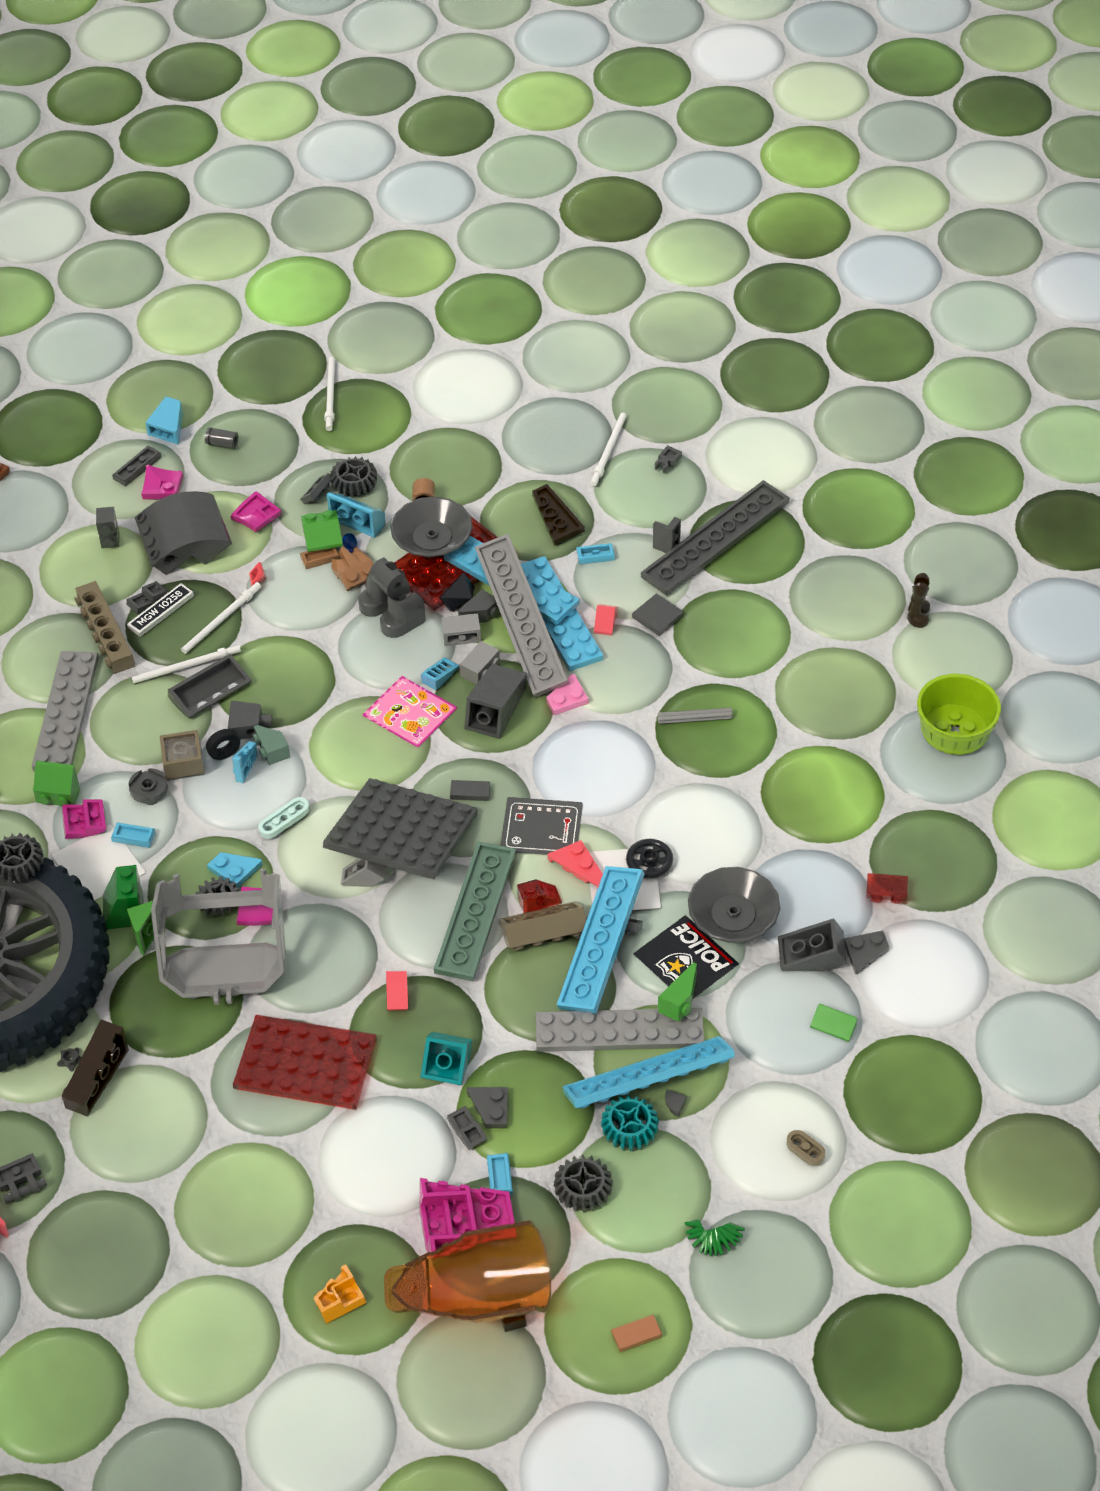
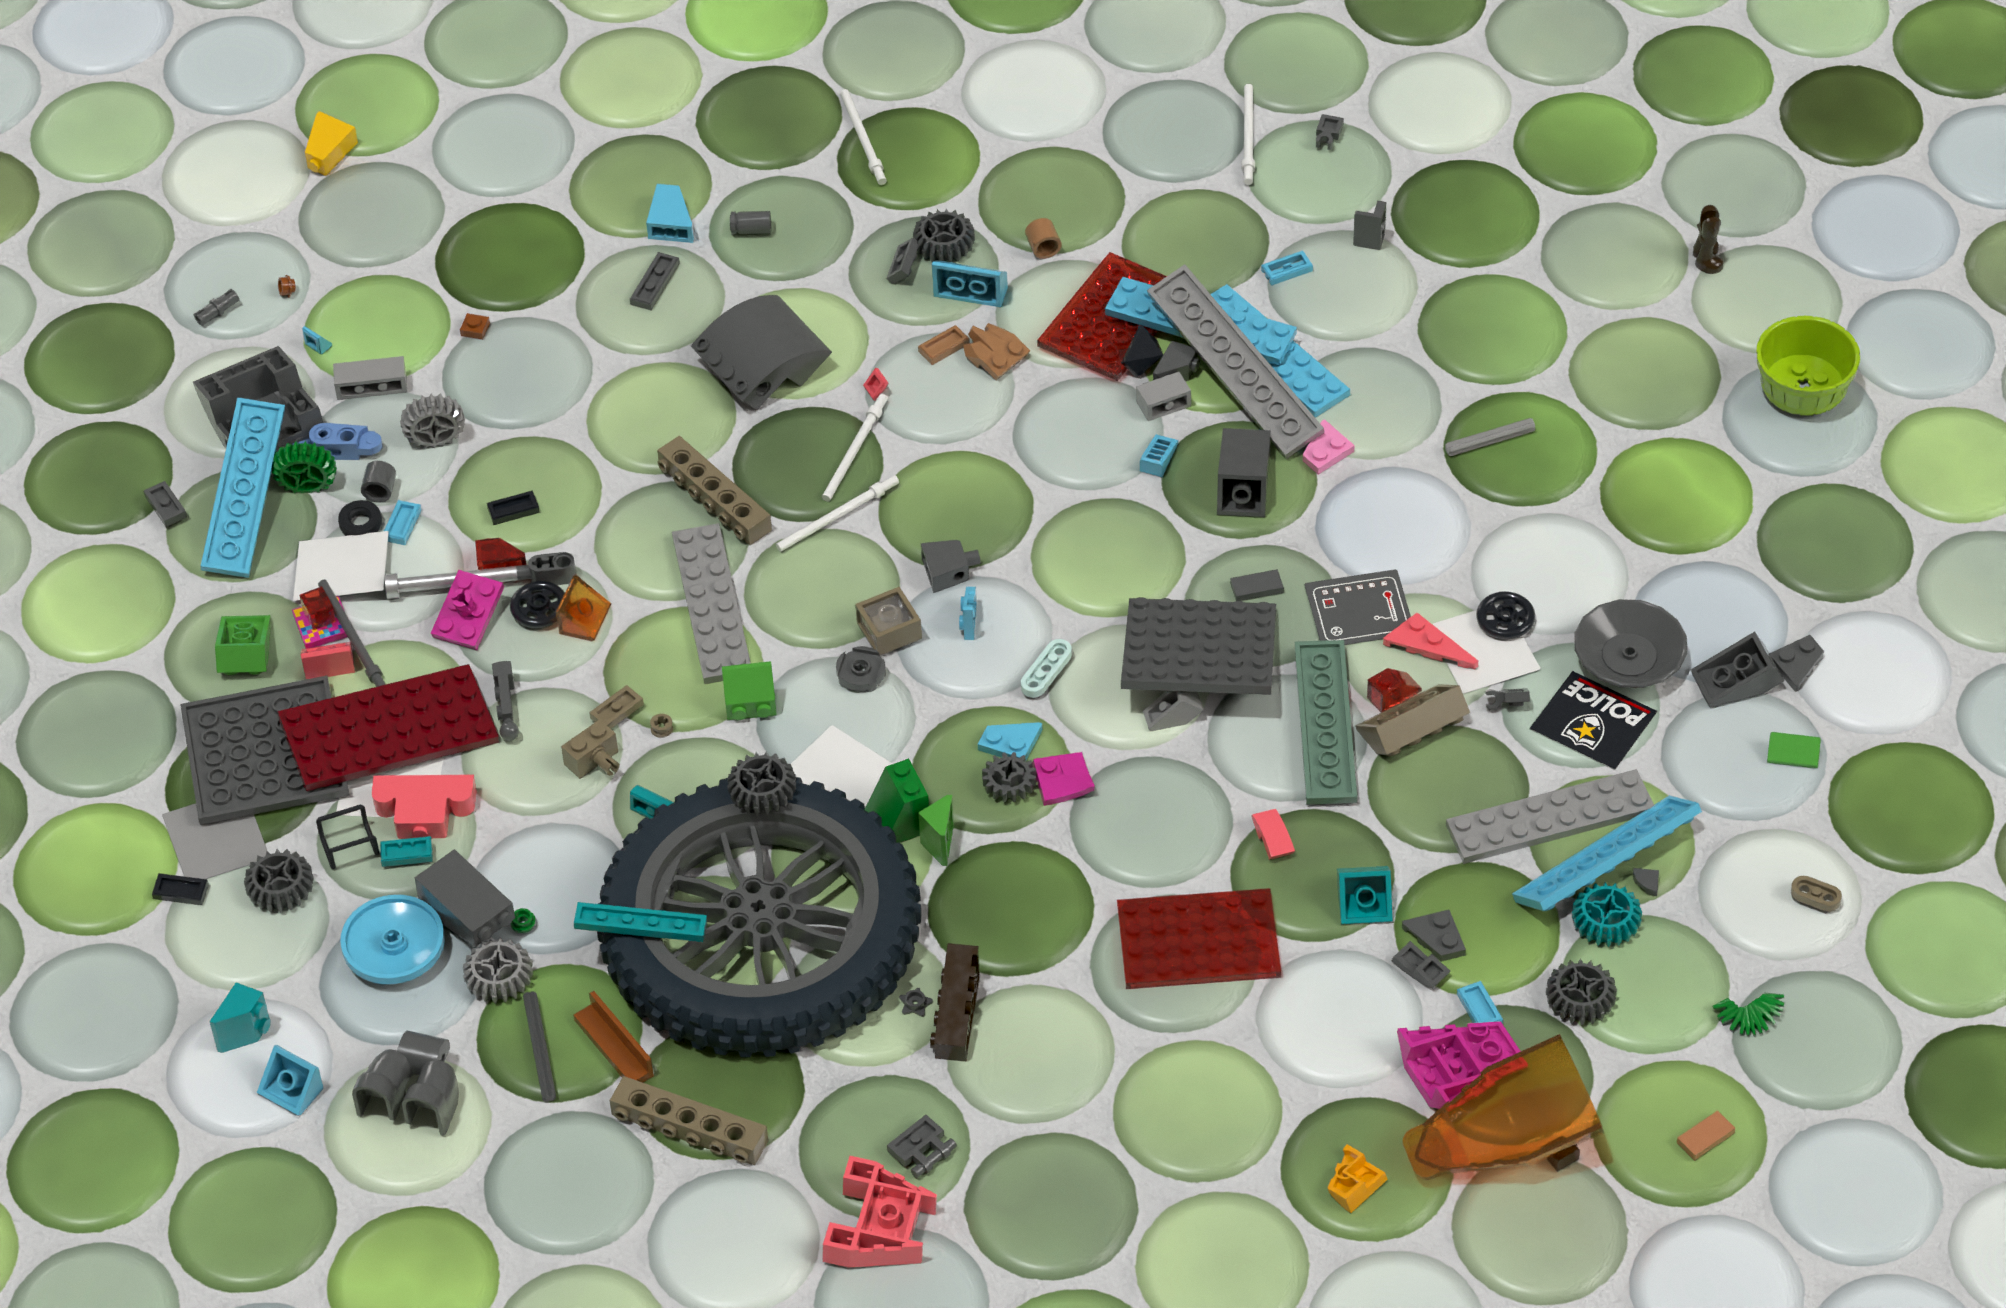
camera: 15 degrees left, 0 degrees up
(83, 819) = (798, 725): dark pink slope -> none
(107, 527) = (662, 365): dark grey piece -> none
(133, 835) = (868, 730): medium azure tile -> none
(150, 594) = (749, 442): dark grey slope -> none
(160, 610) = (772, 454): tile -> none
(161, 482) = (698, 297): dark pink plate -> none
(208, 686) = (880, 534): dark grey slope -> none
(219, 737) = (936, 586): black tyre -> none
(220, 968) = (1063, 854): light grey windscreen -> none
(256, 512) = (838, 307): dark pink plate -> none
(272, 744) = (992, 585): sand green slope -> none
(321, 530) = (936, 312): bright green slope -> none
(349, 542) = (975, 318): clear blue piece -> none
(387, 596) = (1058, 363): dark grey piece -> none
(409, 711) = (1140, 509): sticker -> none
(431, 526) = (1079, 277): dark grey dish -> none
(478, 662) = (1205, 431): light grey brick -> none
(556, 515) = (1222, 233): dark brown wing -> none
(600, 939) = (1492, 718): medium azure plate -> none
(605, 619) = (1334, 345): coral slope -> none
(657, 614) = (1394, 325): dark grey tile -> none
(678, 997) = (1609, 762): bright green slope -> none
(714, 537) = (1427, 216): dark grey plate -> none
(887, 887) = (1796, 585): clear red bracket -> none

